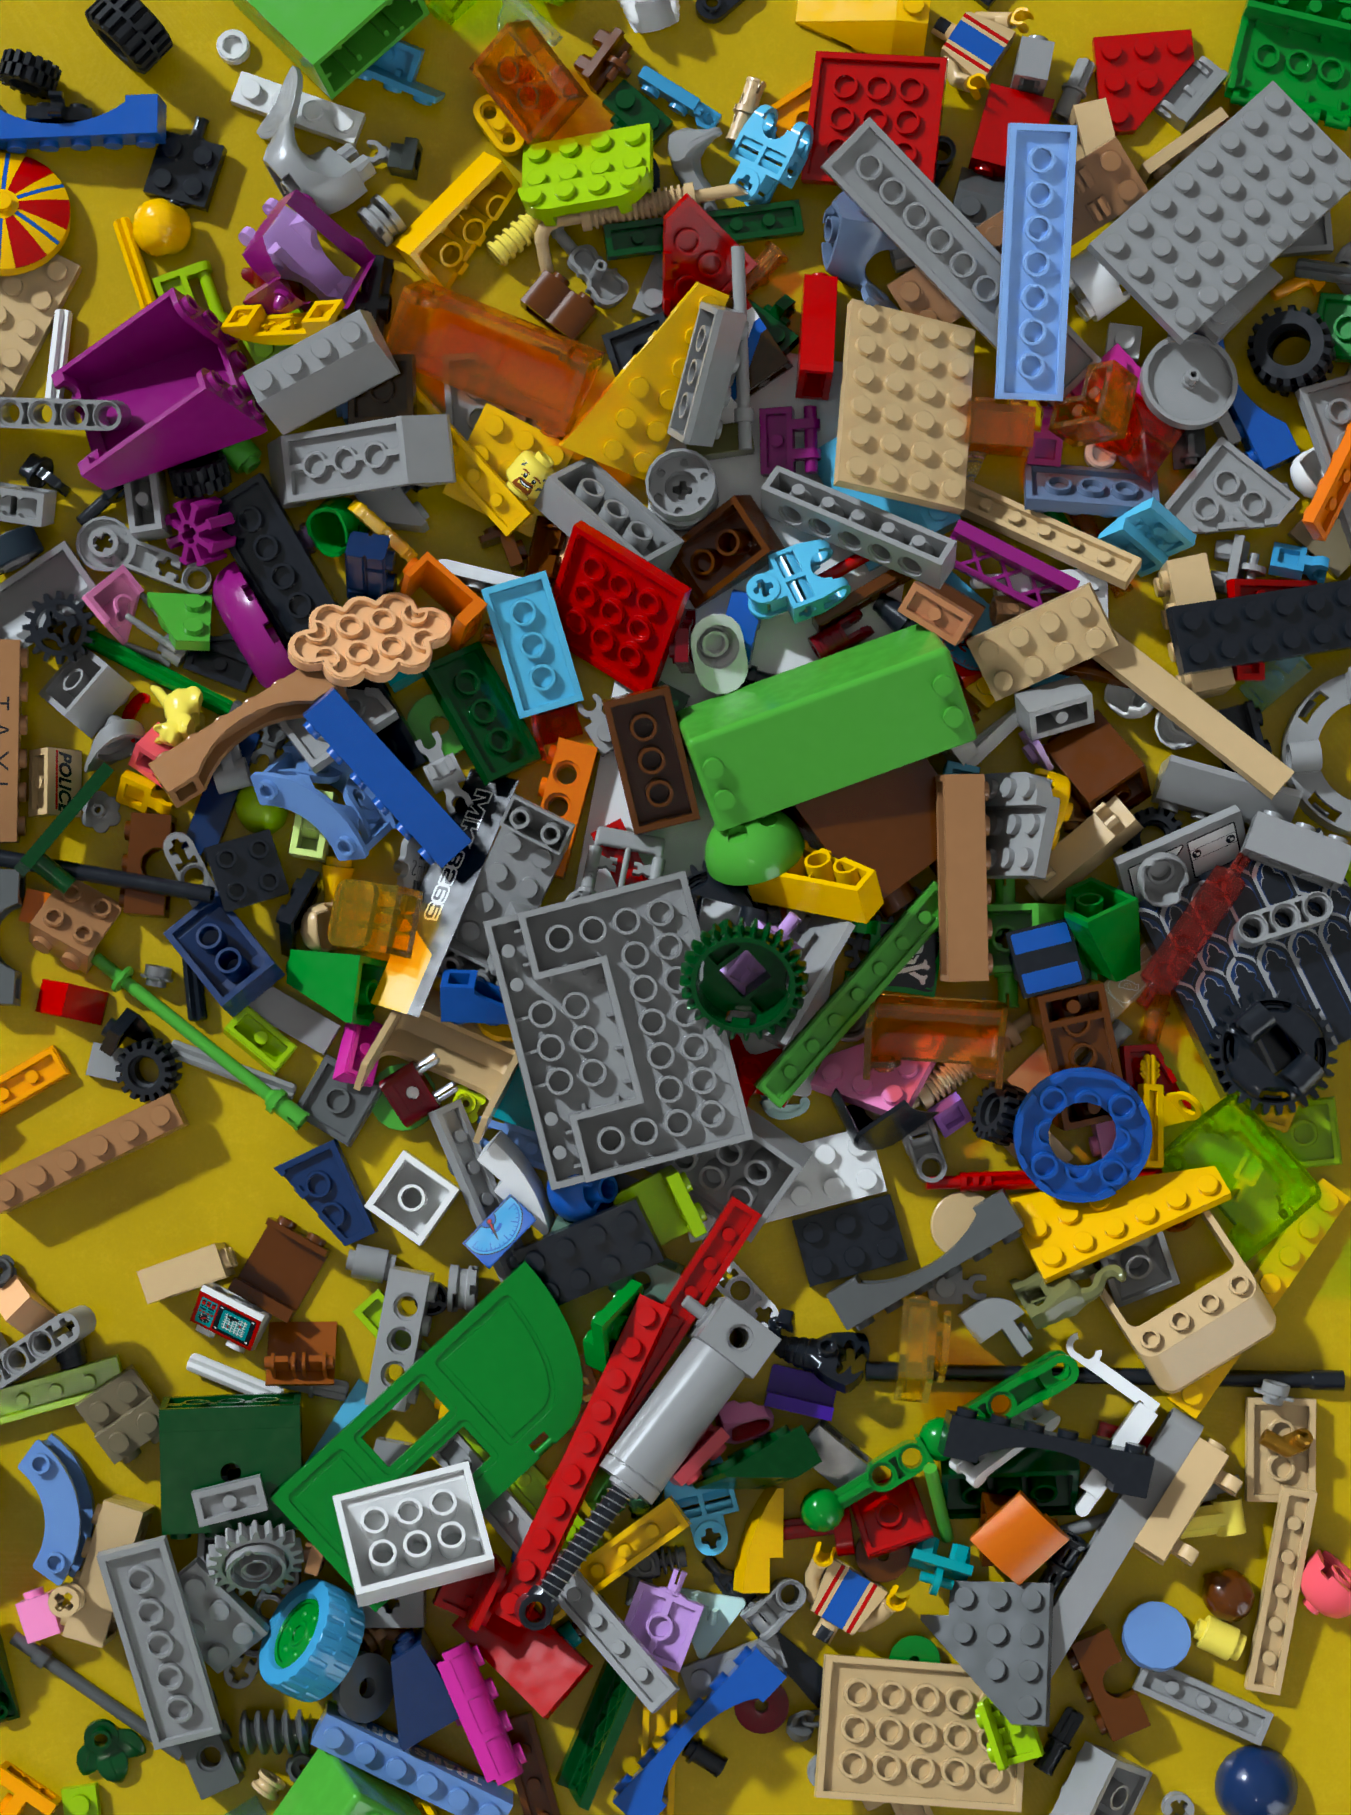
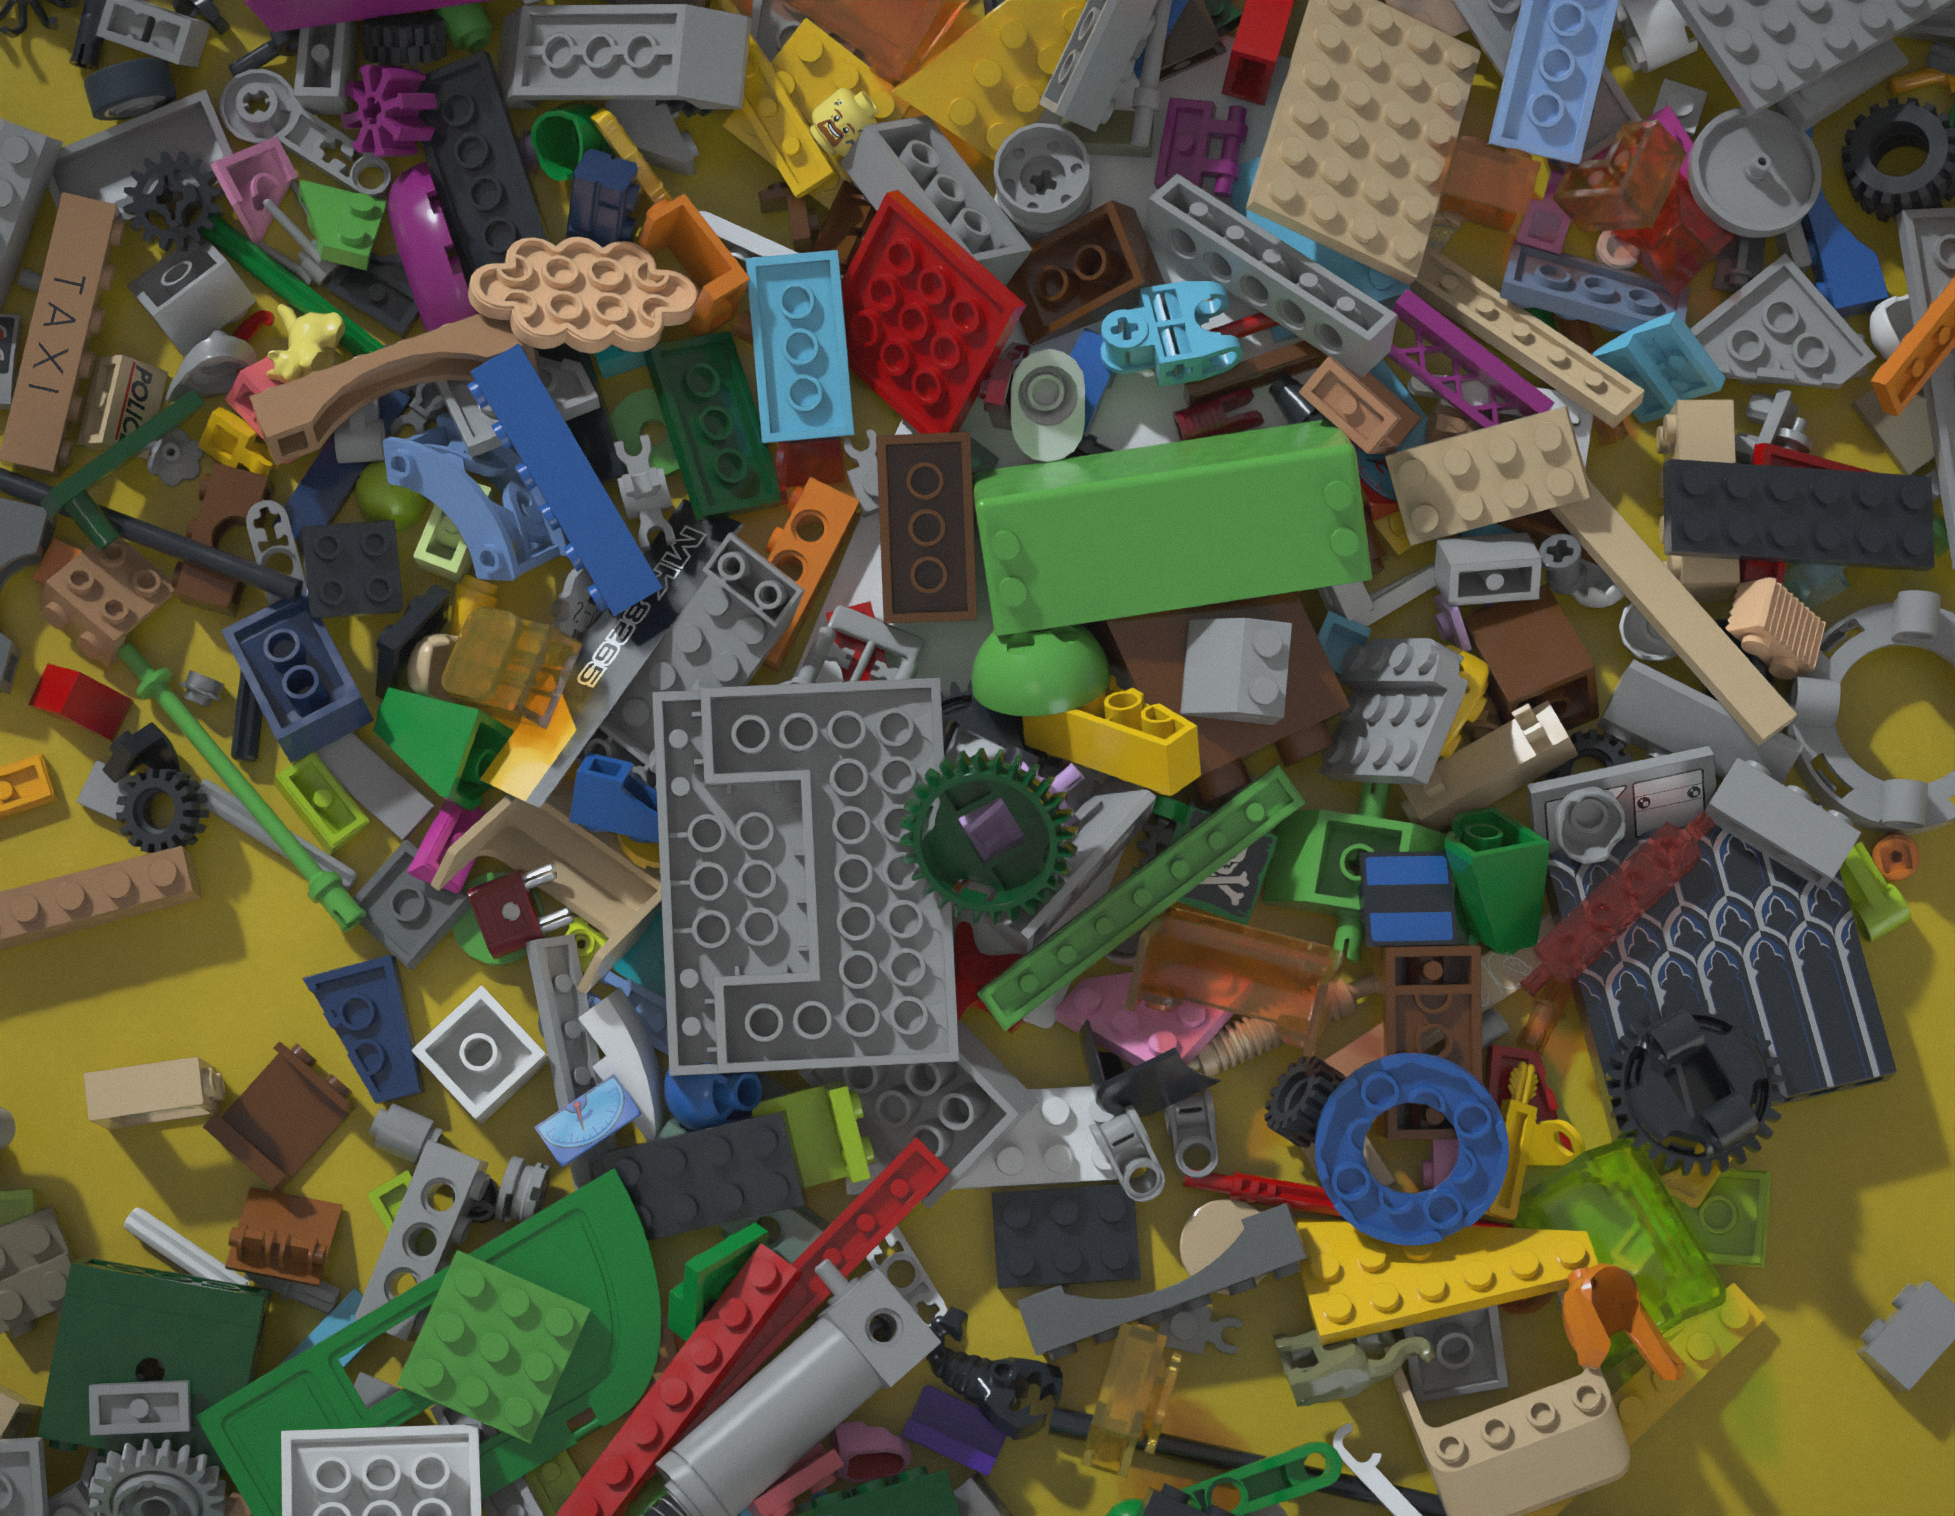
camera: 10 degrees right, 5 degrees down
(230, 1317) = (198, 1166): slope -> none
(467, 1405) = (493, 1346): none -> bright green plate
(790, 1110) = (1012, 1043): light aqua piece -> none
(881, 1174) = (1126, 1148): none -> light grey piece
(893, 821) = (1236, 669): none -> light grey slope
(951, 1114) = (1238, 1091): medium lavender plate -> none
(963, 877) = (1316, 766): medium nougat brick -> none
(996, 1314) = (1242, 1377): light grey brick -> none
(1107, 693) = (1562, 559): none -> dark grey bush
(1239, 1215) = (1605, 1302): none -> orange piece
(1266, 710) = (1776, 628): none -> light nougat brick
(1292, 562) = (1852, 441): dark azure plate -> none
(1294, 908) = (1761, 898): light grey beam -> none

